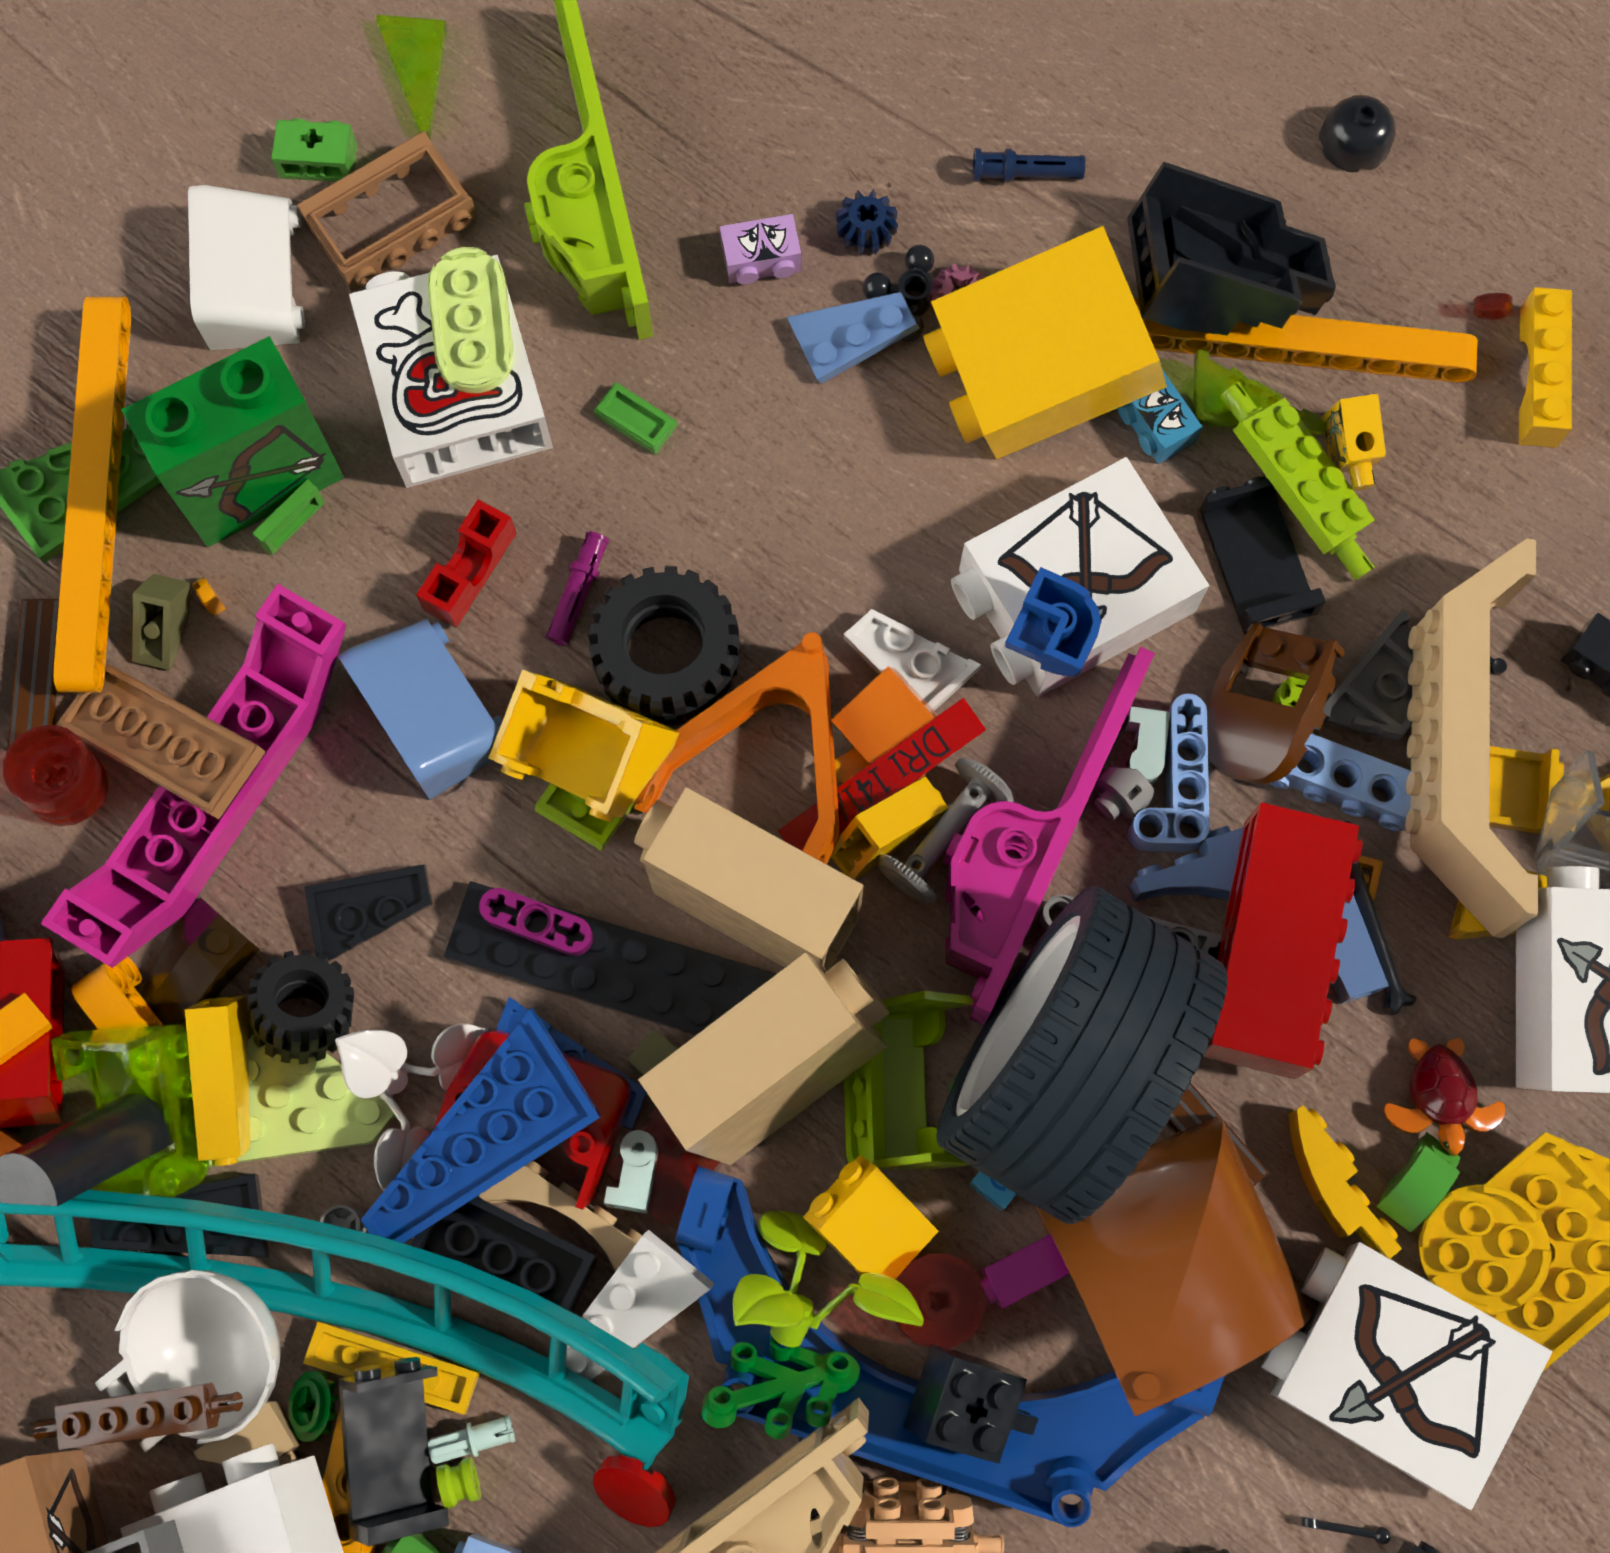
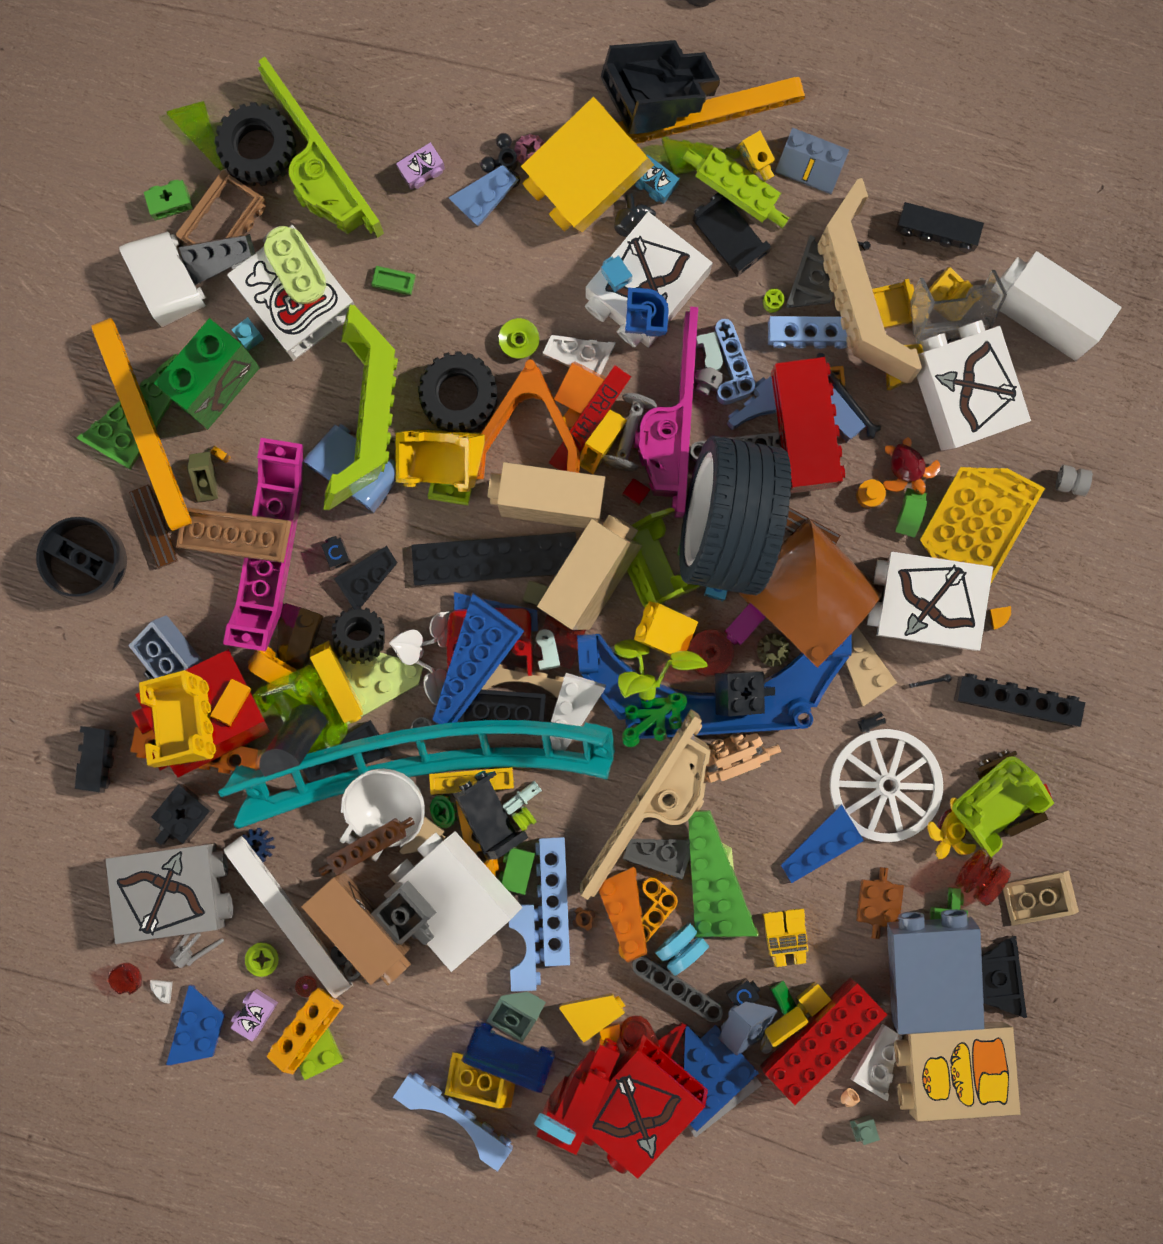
camera: 20 degrees left, 10 degrees up
(41, 761) = (181, 564): clear red wheel -> none
(289, 517) = (243, 399): bright green tile -> none
(329, 843) = (336, 552): none -> black brick
(345, 261) = (212, 257): none -> wing
(346, 411) = (247, 334): none -> medium azure brick
(482, 543) = (343, 395): red arch -> none
(489, 73) = (247, 120): none -> black tyre
(495, 627) = (374, 408): none -> lime slope
(505, 920) = (436, 557): magenta beam -> none
(582, 575) = (402, 380): magenta pin -> none
(634, 1492) = (605, 790): red tile -> none
(808, 577) = (518, 328): none -> lime dish
(866, 222) = (466, 124): dark blue gear -> none
(915, 944) = (636, 492): none -> red slope
(1009, 165) = (529, 70): dark blue pin -> none
(1028, 537) = (616, 273): none -> dark azure brick
(1049, 1358) = (764, 645): none -> olive gear
(1088, 458) = (629, 217): none -> black piece
(1230, 1458) = (867, 670): none -> tan wing
(1259, 737) = (763, 328): reddish brown slope -> none
(1325, 1170) = (866, 524): yellow slope -> none
(1354, 1116) = (870, 493): none -> light orange piece
(1450, 485) = (812, 161): none -> sand blue slope
(1485, 1248) = (950, 531): yellow tile -> none
(1493, 306) = (801, 55): clear red tile -> none
(1526, 1454) = (999, 616): none -> light orange tile
(1547, 401) = (835, 65): yellow arch -> none

